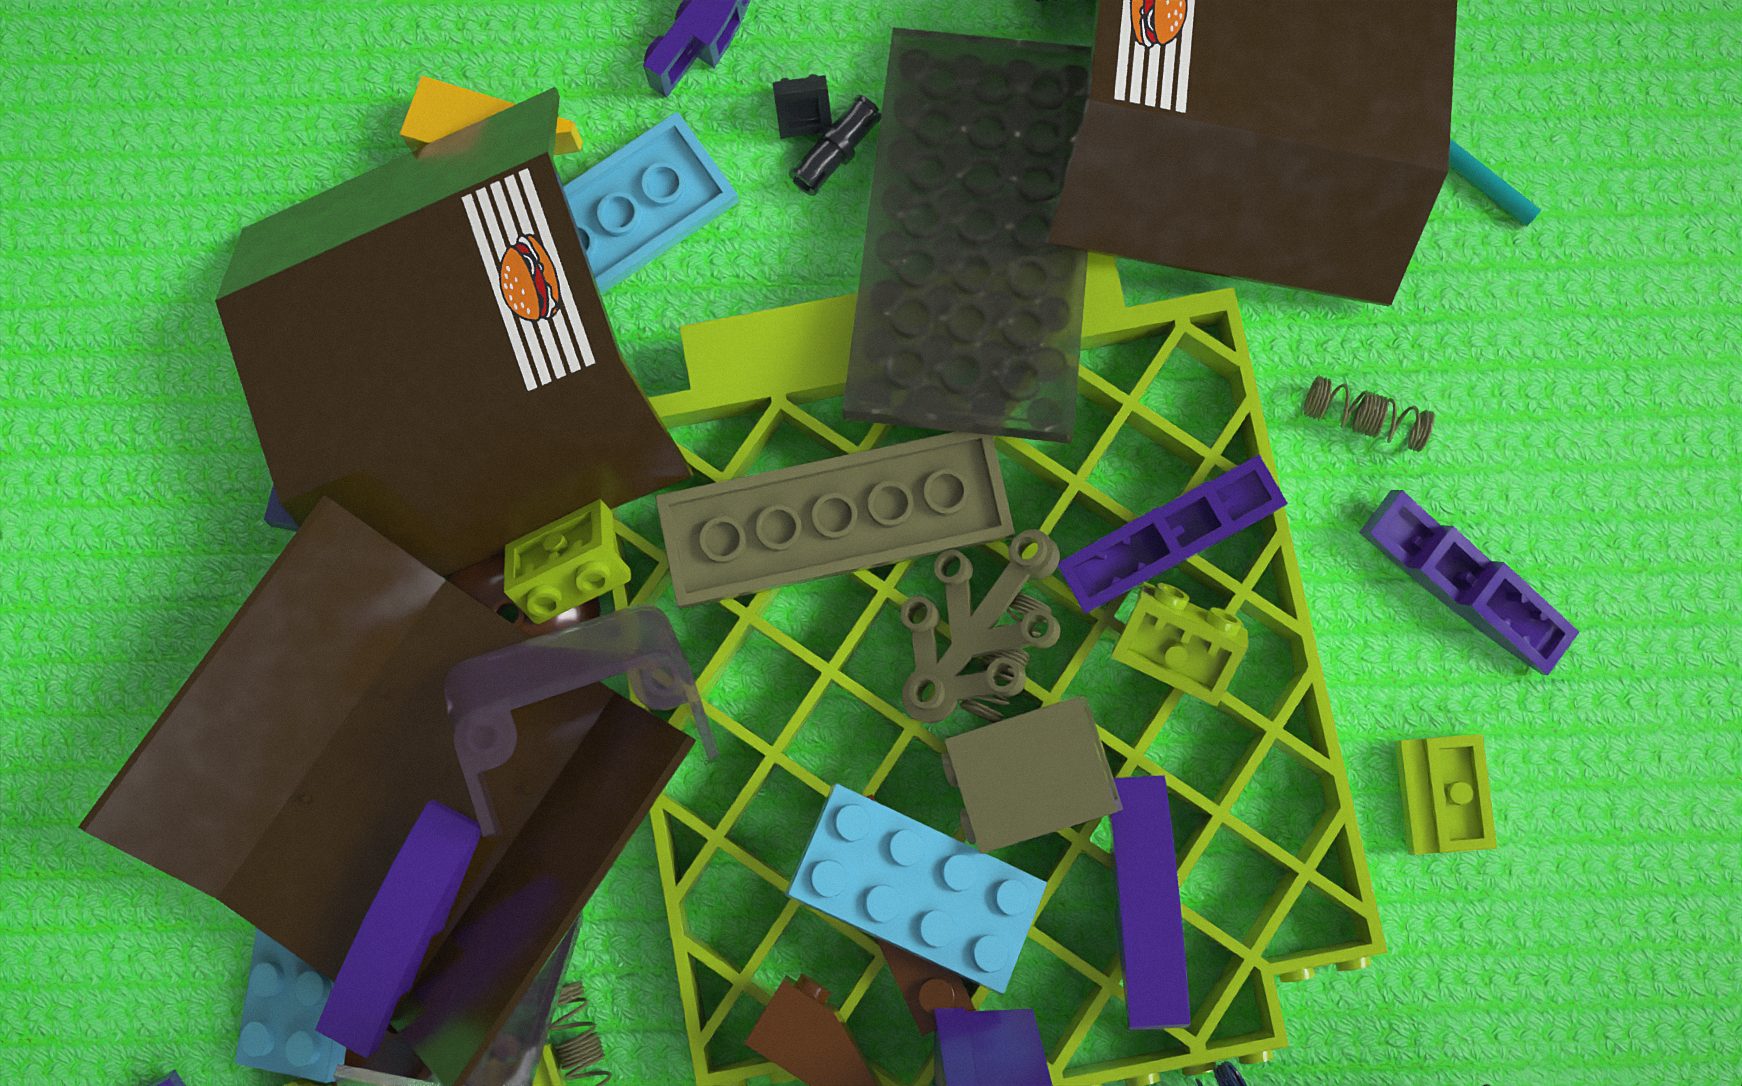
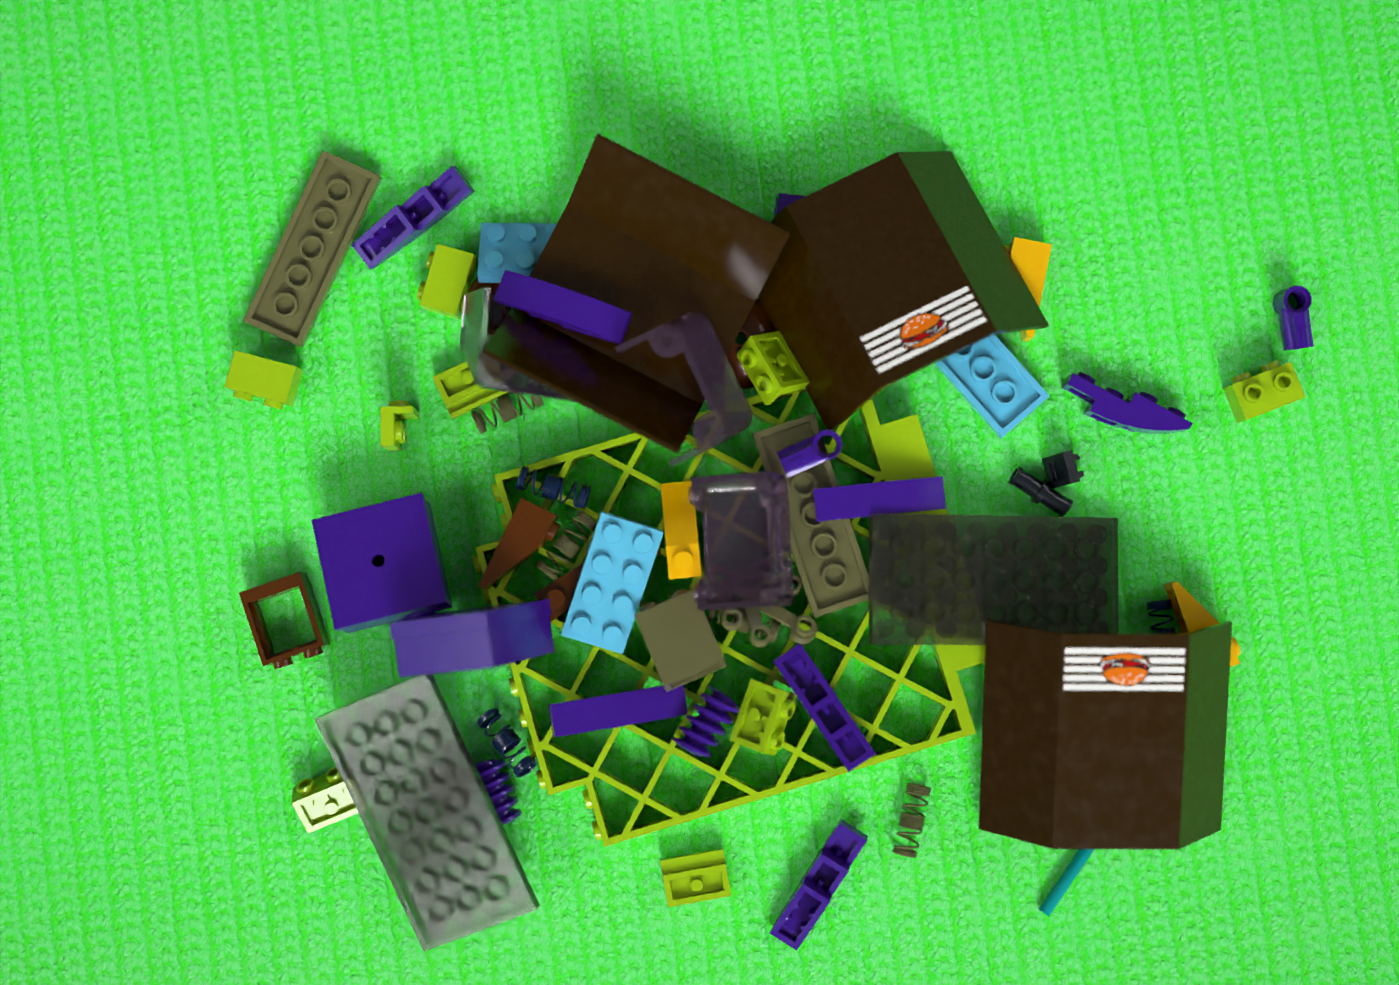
camera: 85 degrees right, 5 degrees up
(724, 511) = (806, 453): none -> dark purple piece
(731, 980) = (552, 487): none -> dark blue piece
(816, 401) = (879, 497): none -> dark purple slope
(836, 752) = (680, 531): none -> yellow slope
(841, 966) = (567, 545): none -> olive piece
(868, 640) = (744, 541): none -> clear purple windscreen
(1185, 741) = (707, 723): none -> dark purple piece

